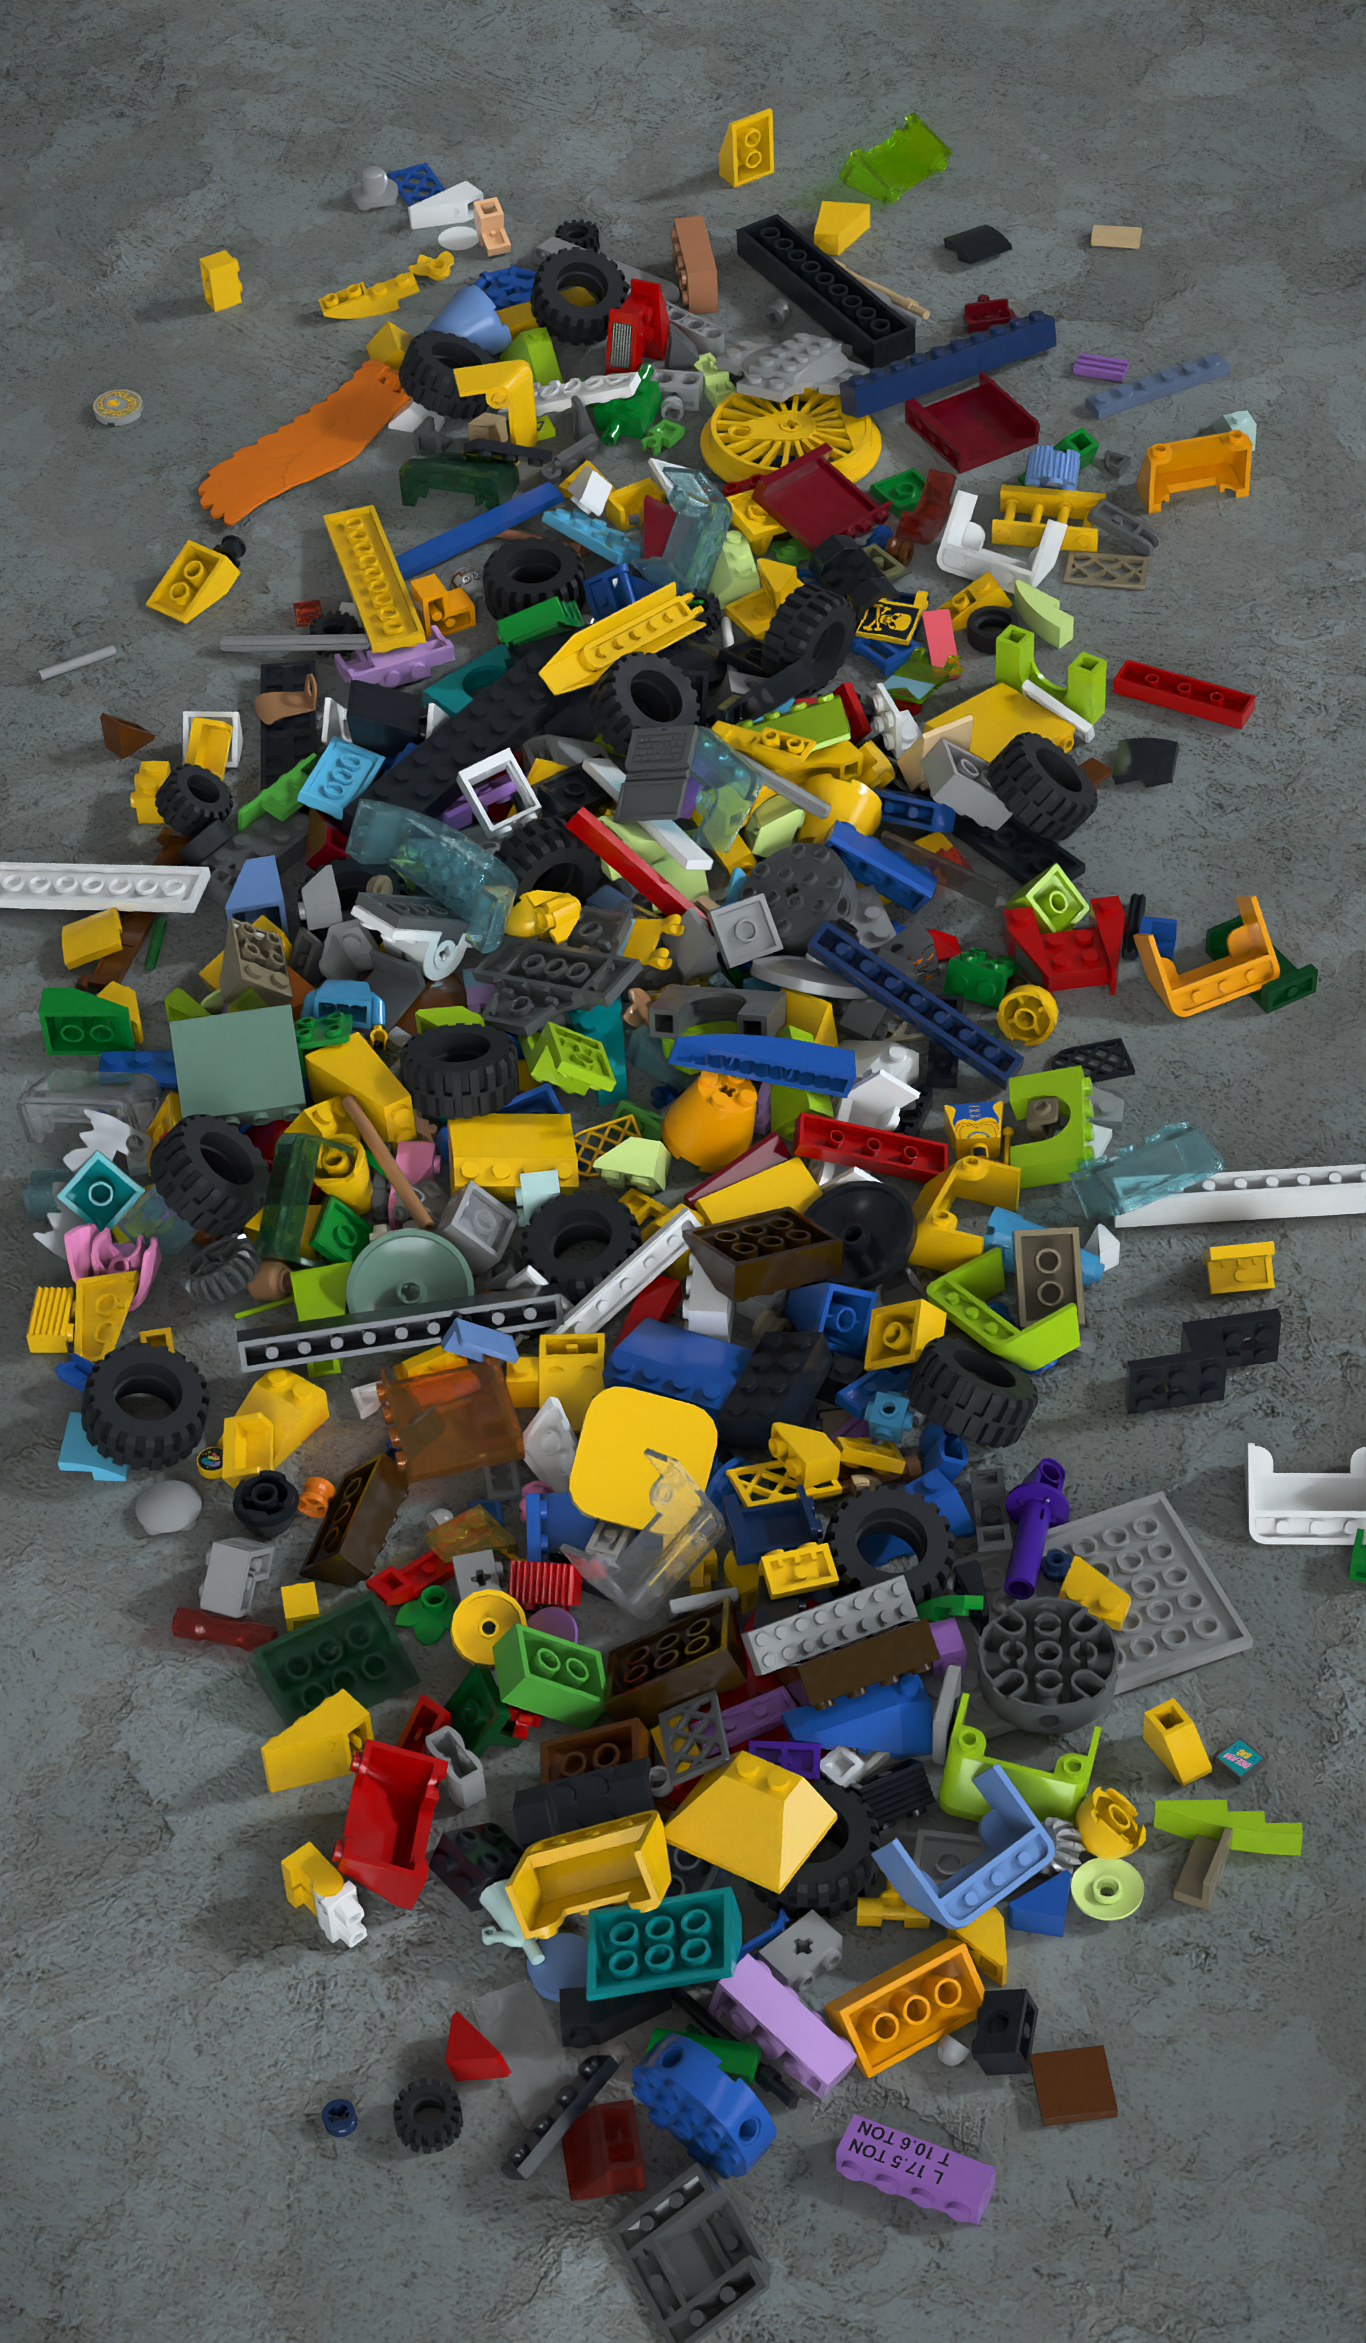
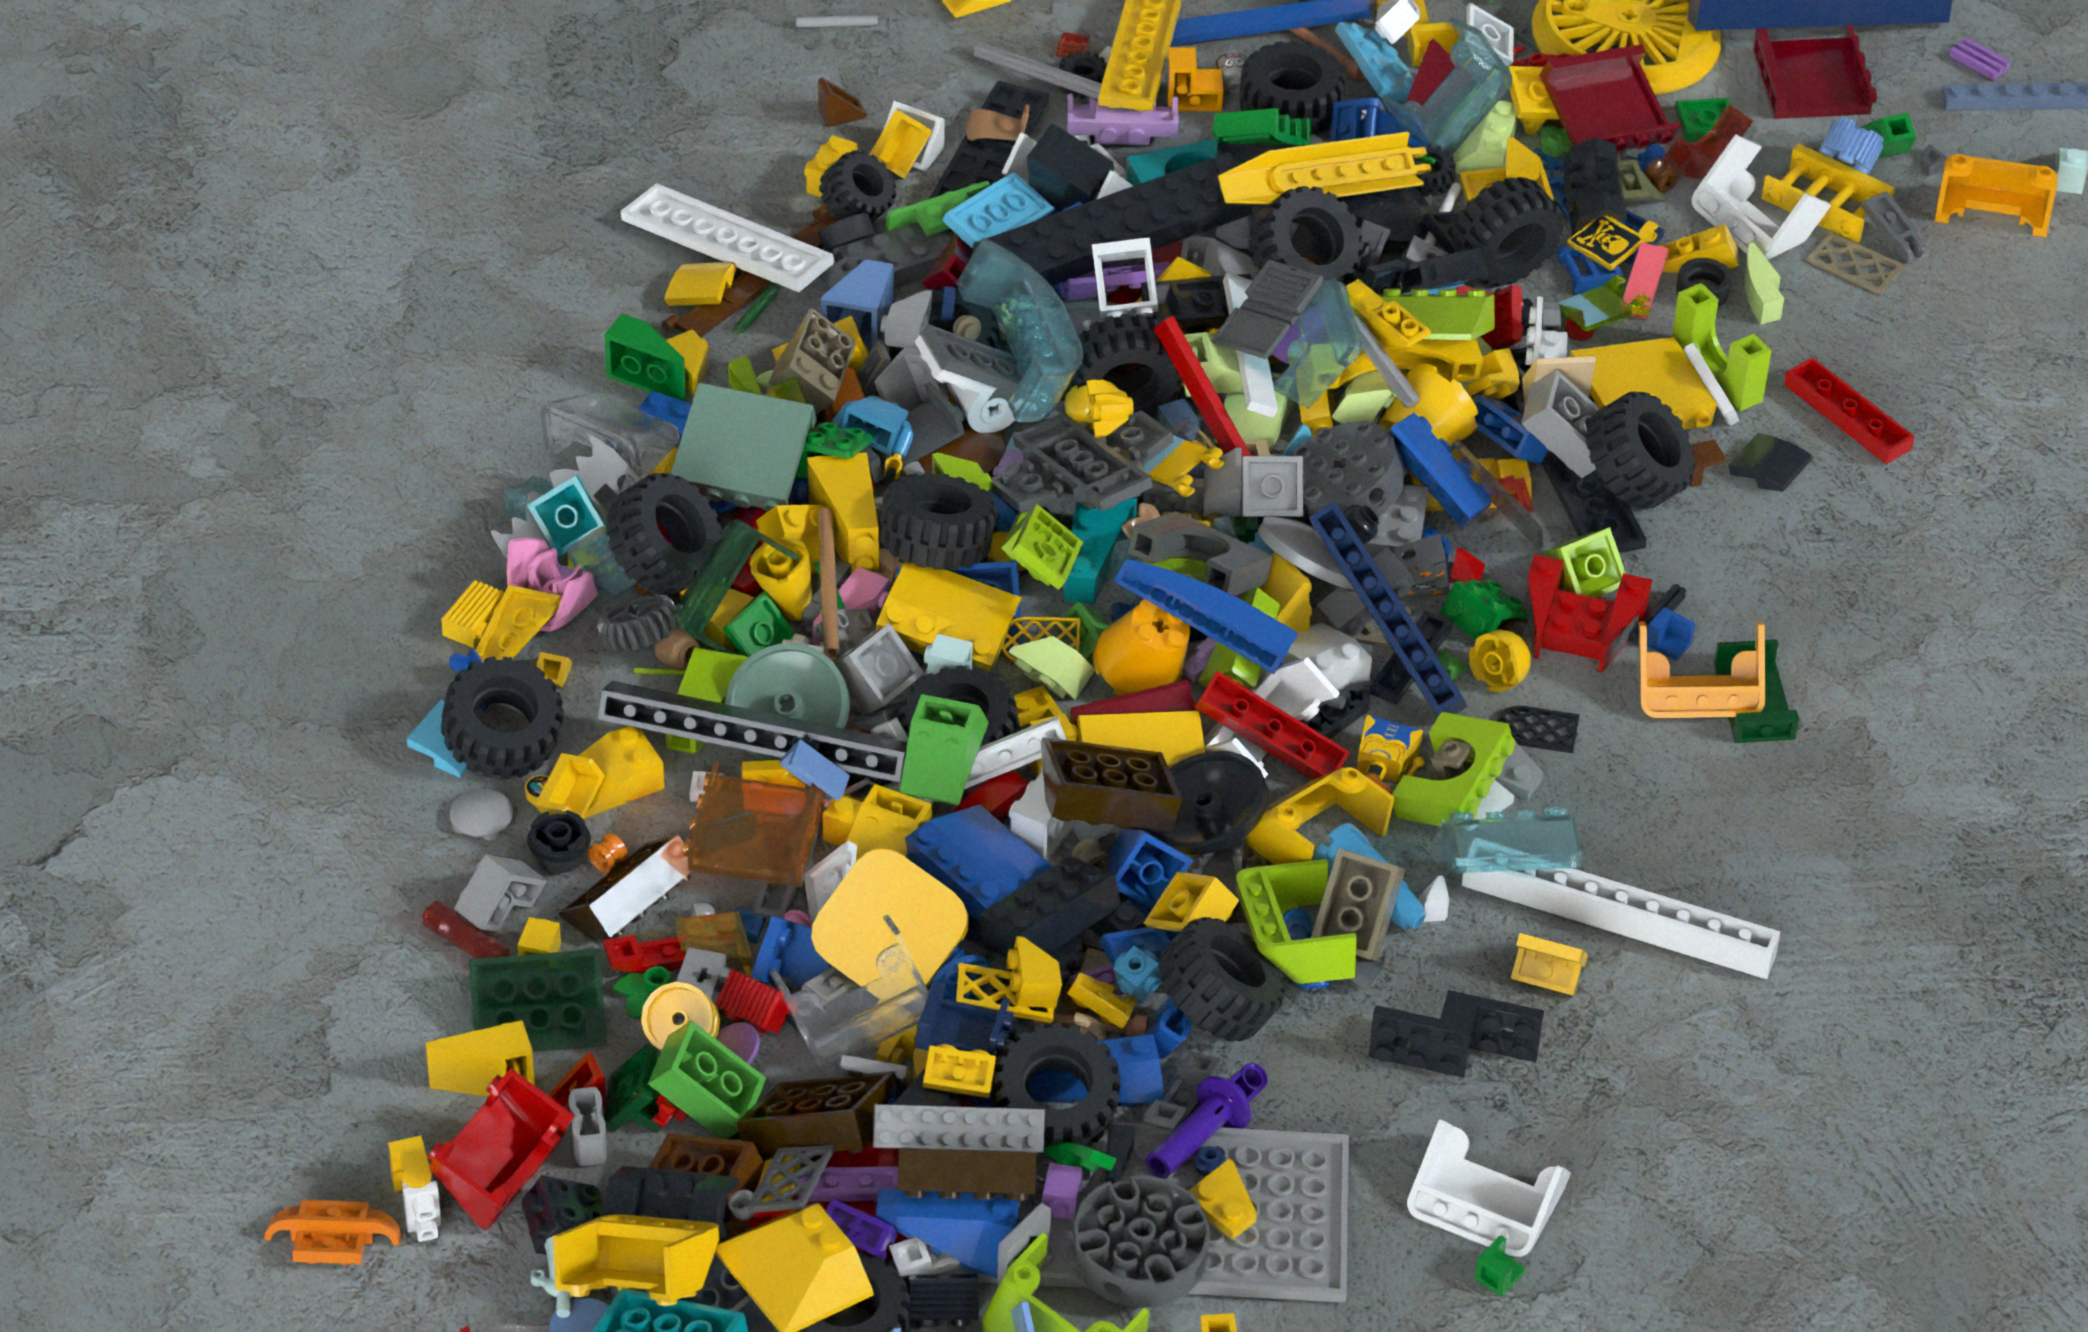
camera: 20 degrees right, 0 degrees up
(259, 1972) = (332, 1230): none -> orange plate
(347, 872) = (947, 303): none -> dark blue tile
(592, 1278) = (942, 748): none -> bright green slope

